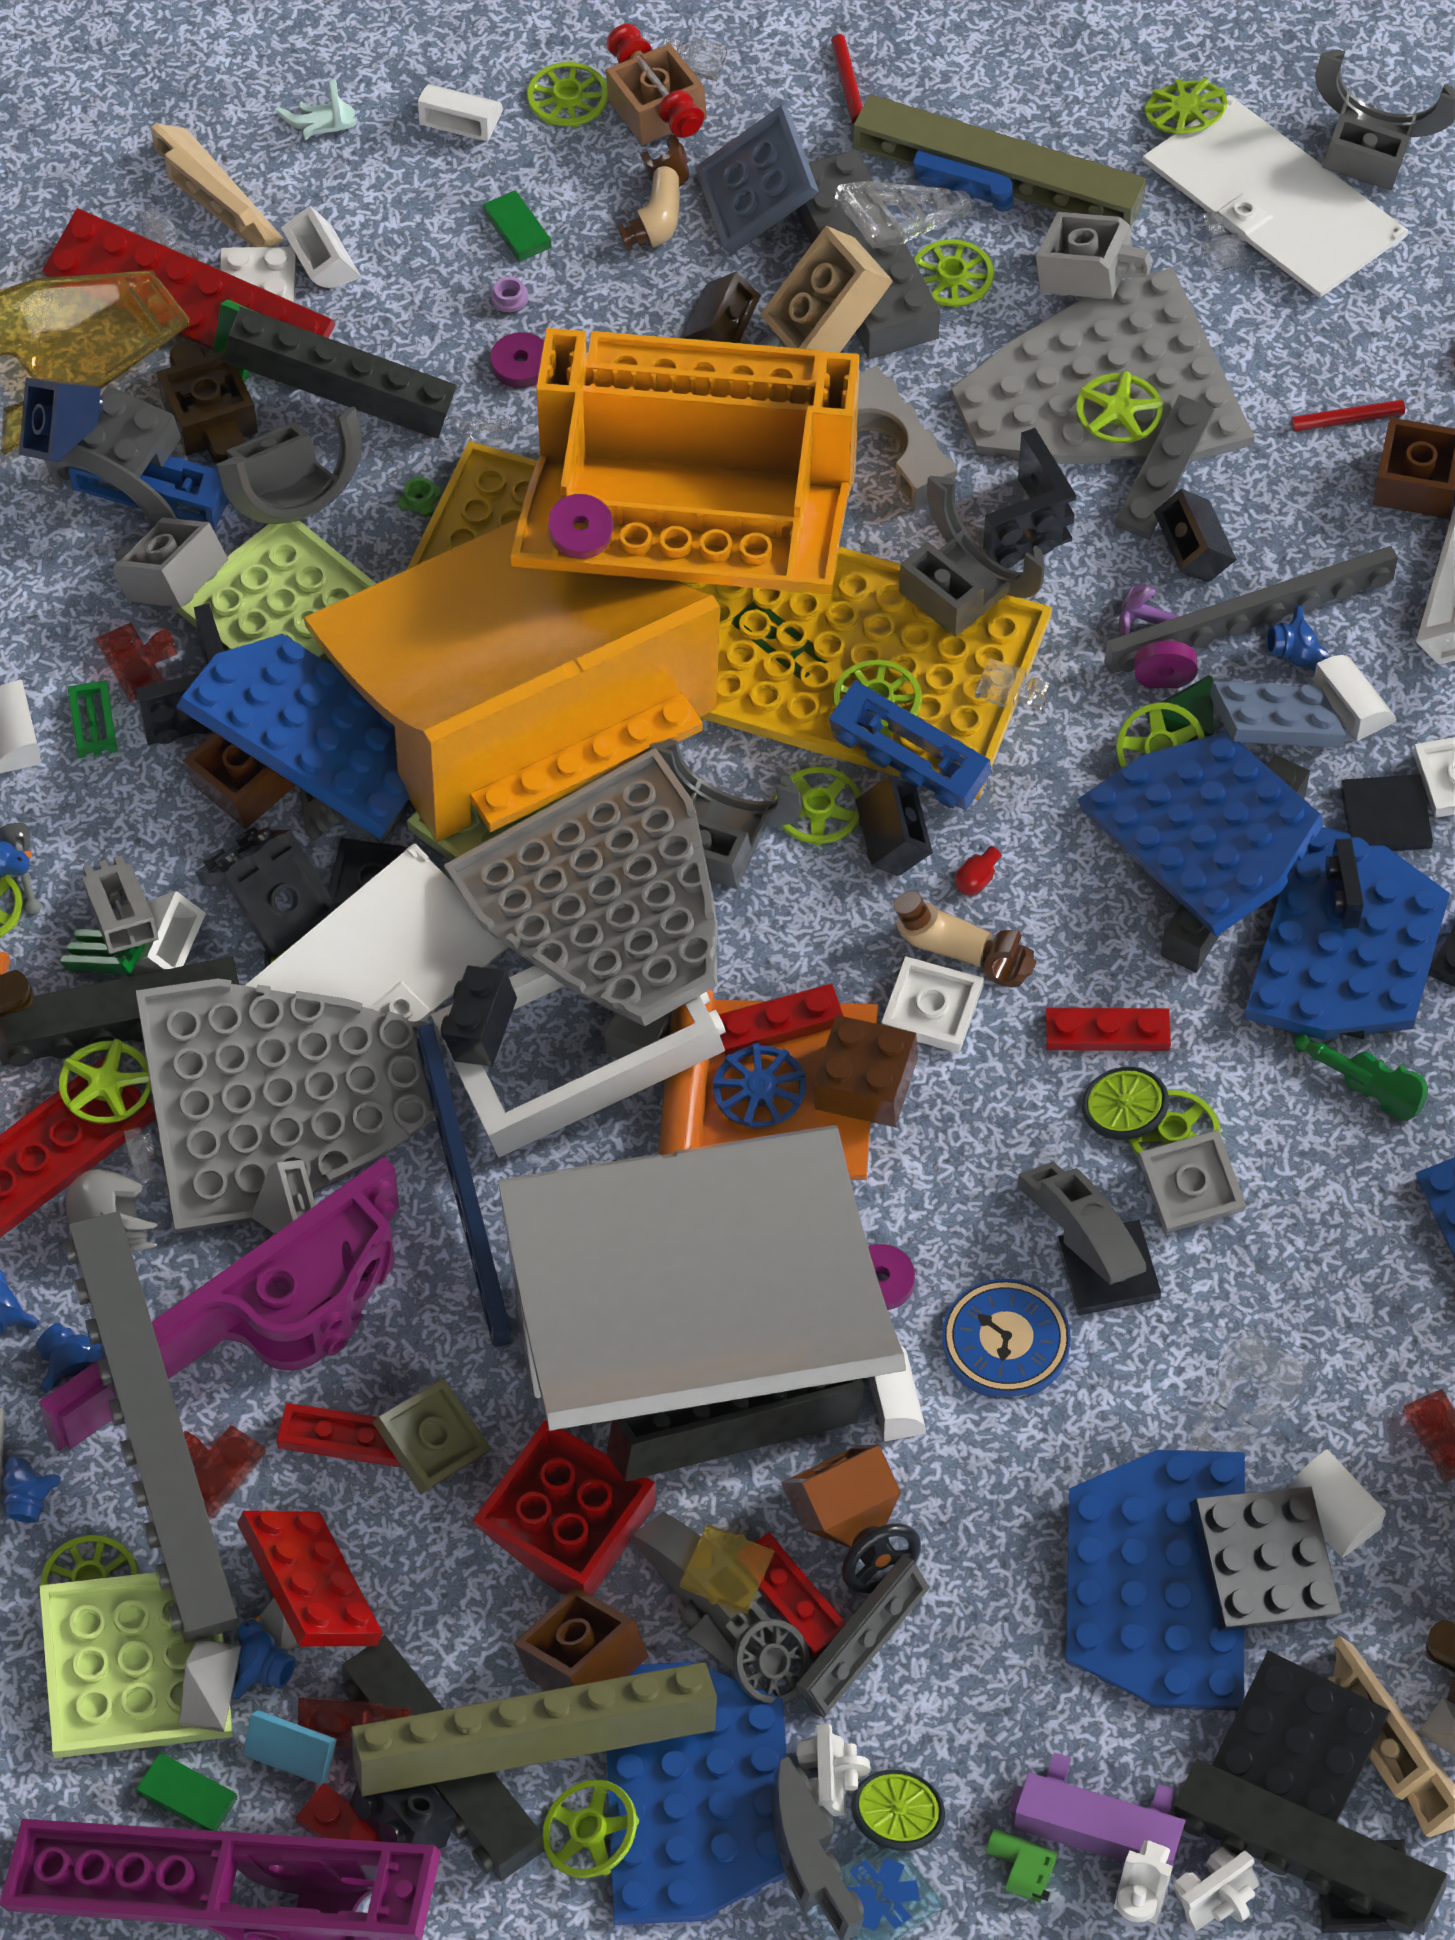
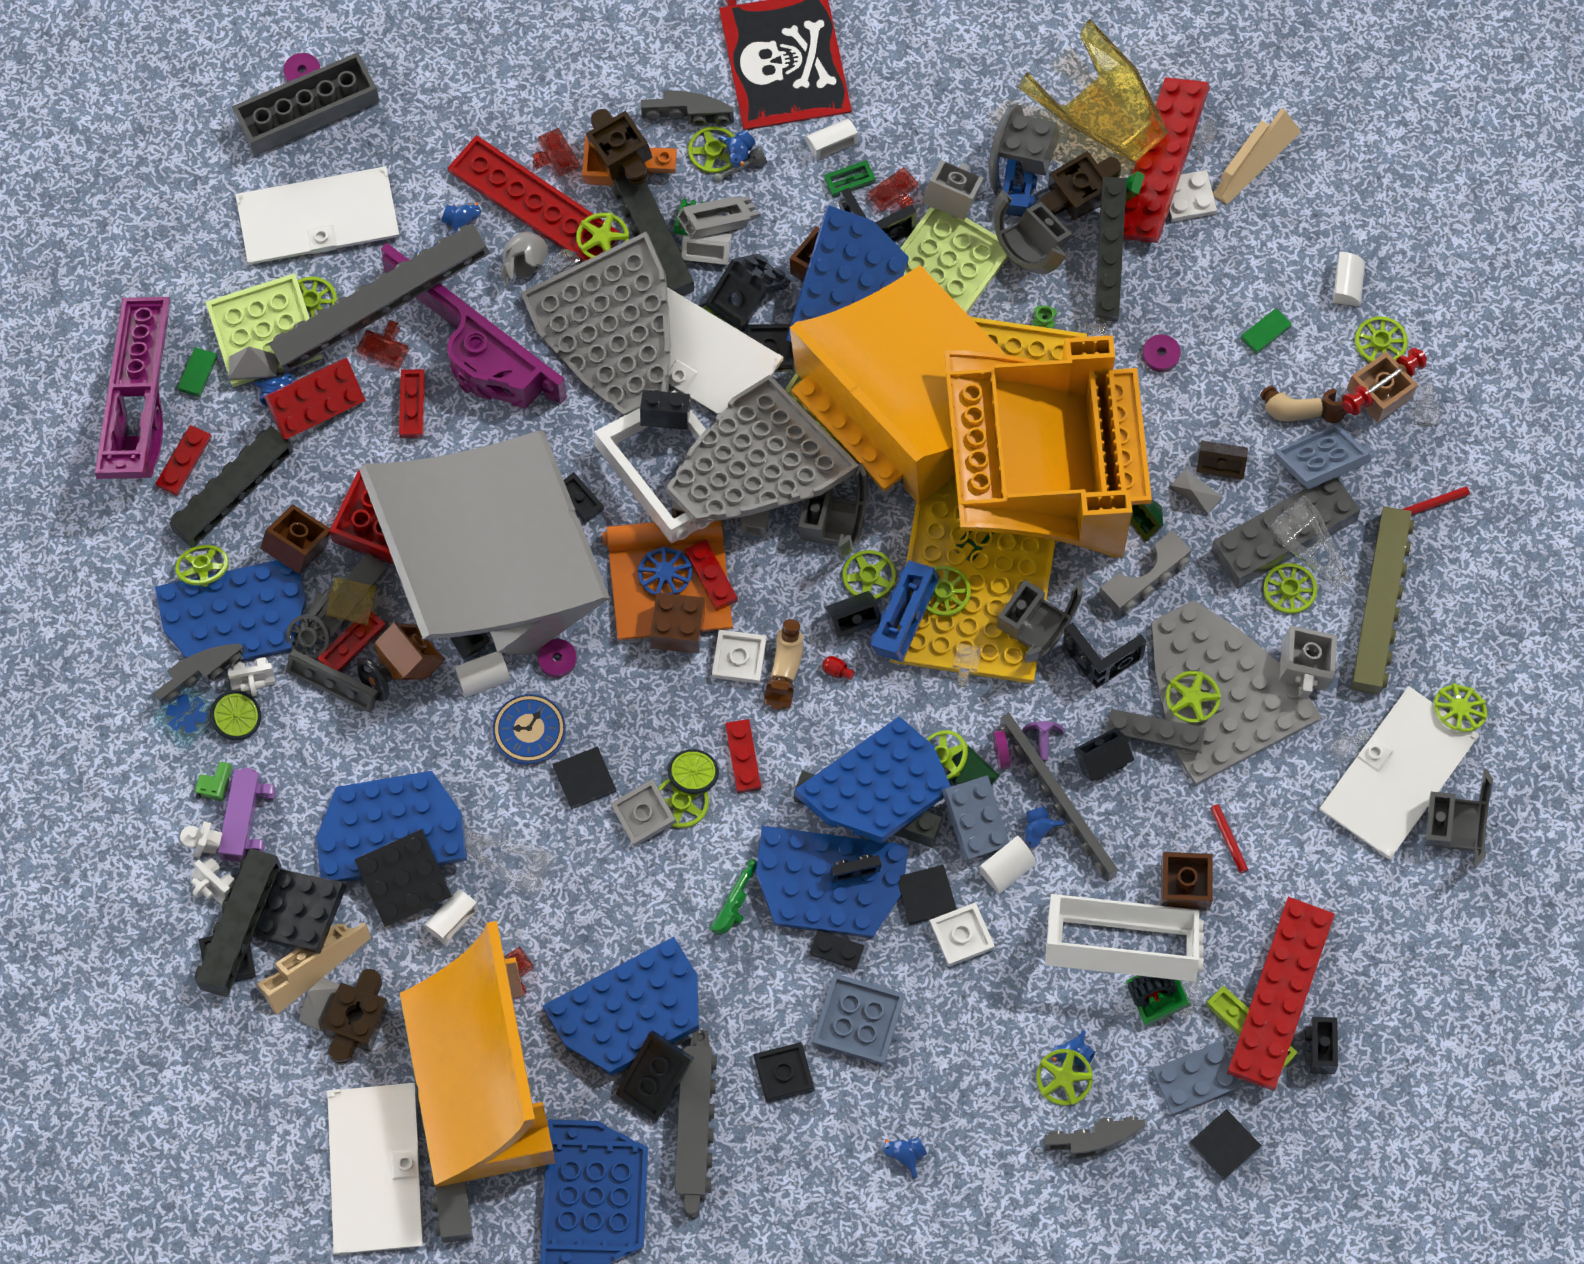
camera: 80 degrees right, 10 degrees up
(25, 1490) = (354, 255): blue animal -> none
(57, 417) = (1026, 101): dark blue slope -> none
(283, 1195) = (546, 343): light grey slope -> none
(289, 1747) = (225, 412): medium azure tile -> none
(320, 249) = (1216, 224): white brick -> none
(321, 118) = (1325, 207): light aqua piece -> none
(338, 1716) = (238, 437): clear red hinge -> none
(406, 1815) = (195, 471): black brick -> none
(432, 1435) = (413, 440): olive plate -> none
(463, 1186) = (597, 412): dark blue tile -> none
(509, 287) = (1212, 331): lavender plate -> none
(533, 1728) = (239, 520): olive brick -> none
(585, 510) = (965, 370): magenta piece -> none
(826, 294) = (1228, 508): tan brick -> none
(952, 175) = (1360, 582): blue plate -> none
(1087, 1218) = (601, 753): dark grey slope -> none

